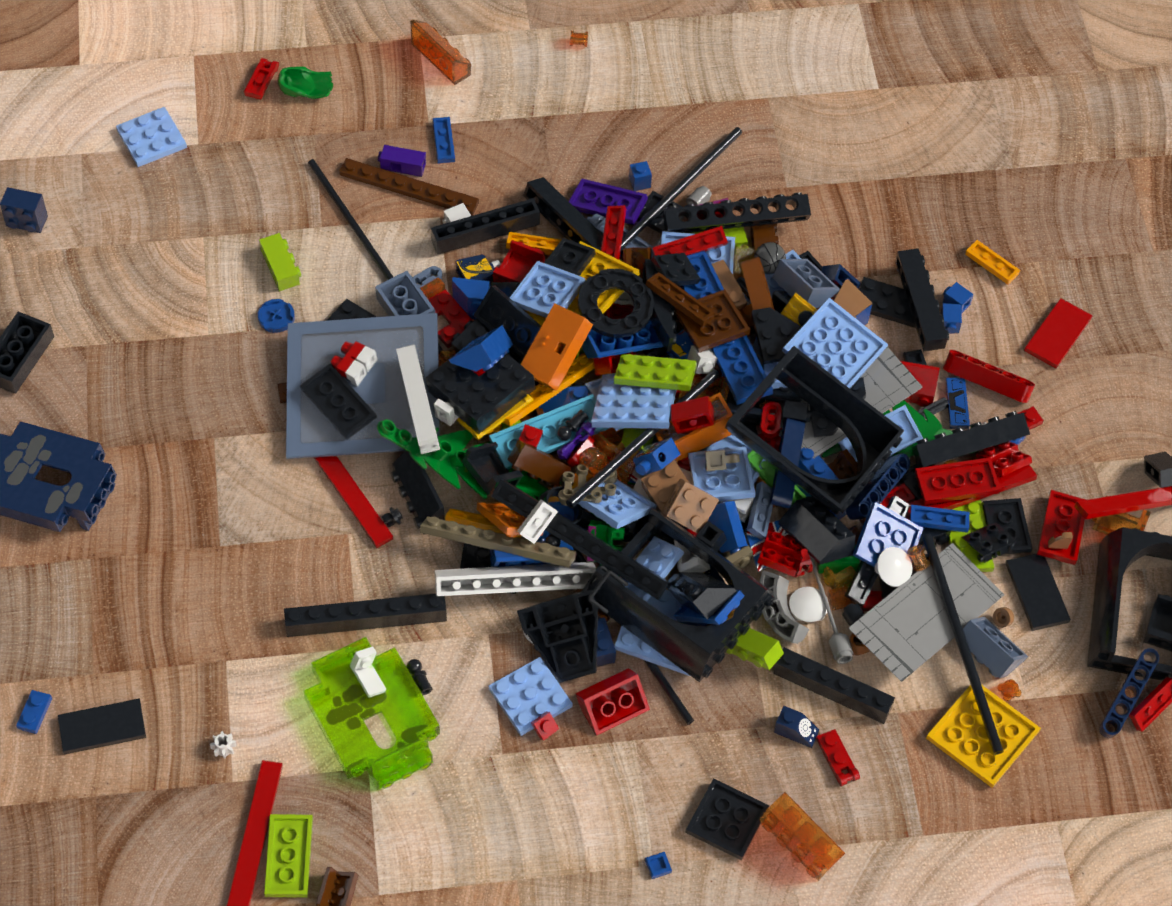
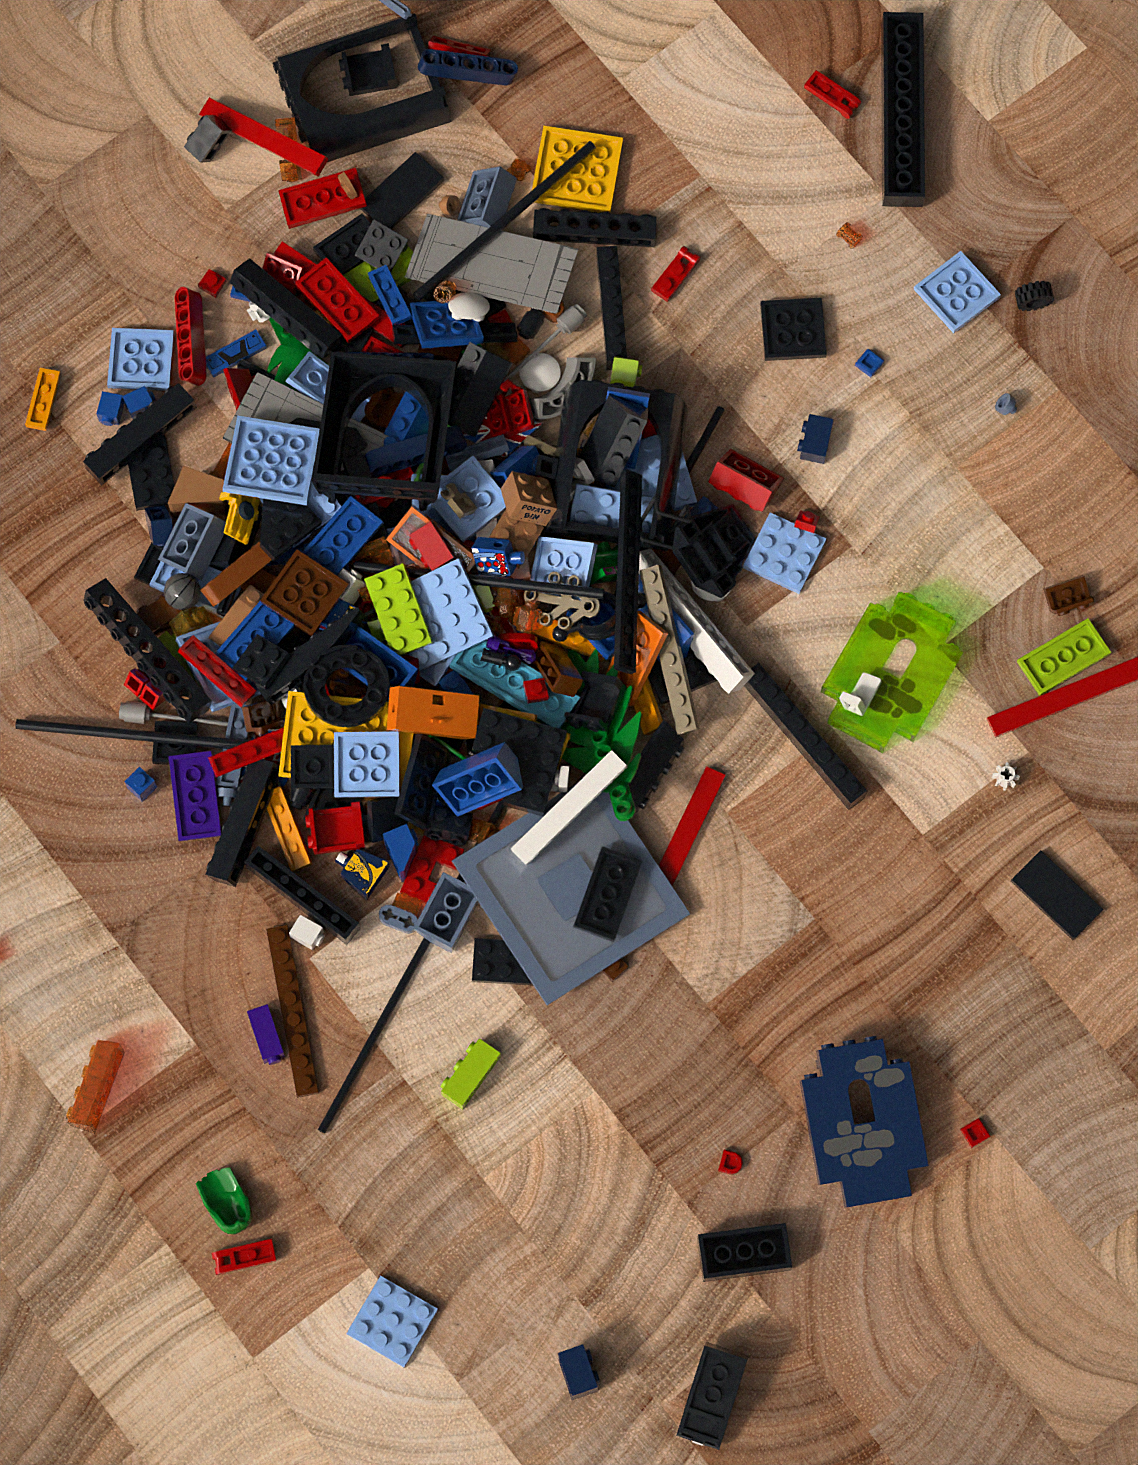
camera: 120 degrees left, 15 degrees up
(34, 712) = (1083, 964): blue plate -> none
(88, 386) = (730, 1163): none -> red tile
(275, 315) = (533, 1038): blue tile -> none
(355, 363) = (548, 903): hips -> none
(393, 517) = (686, 777): black plate -> none
(414, 667) = (824, 663): black pin -> none
(443, 140) = (208, 1014): blue tile -> none
(537, 521) = (647, 612): white plate -> none
(614, 776) = (816, 438): none -> dark blue brick
(680, 299) = (304, 628): reddish brown plate -> none
(796, 727) = (671, 320): dark blue slope -> none
(801, 836) = (779, 254): clear orange brick -> none
(914, 357) = (206, 415): black tile -> none
(940, 674) = (585, 234): none -> black brick
(989, 337) = (140, 359): none -> light blue plate
(1058, 333) = (93, 302): red tile -> none

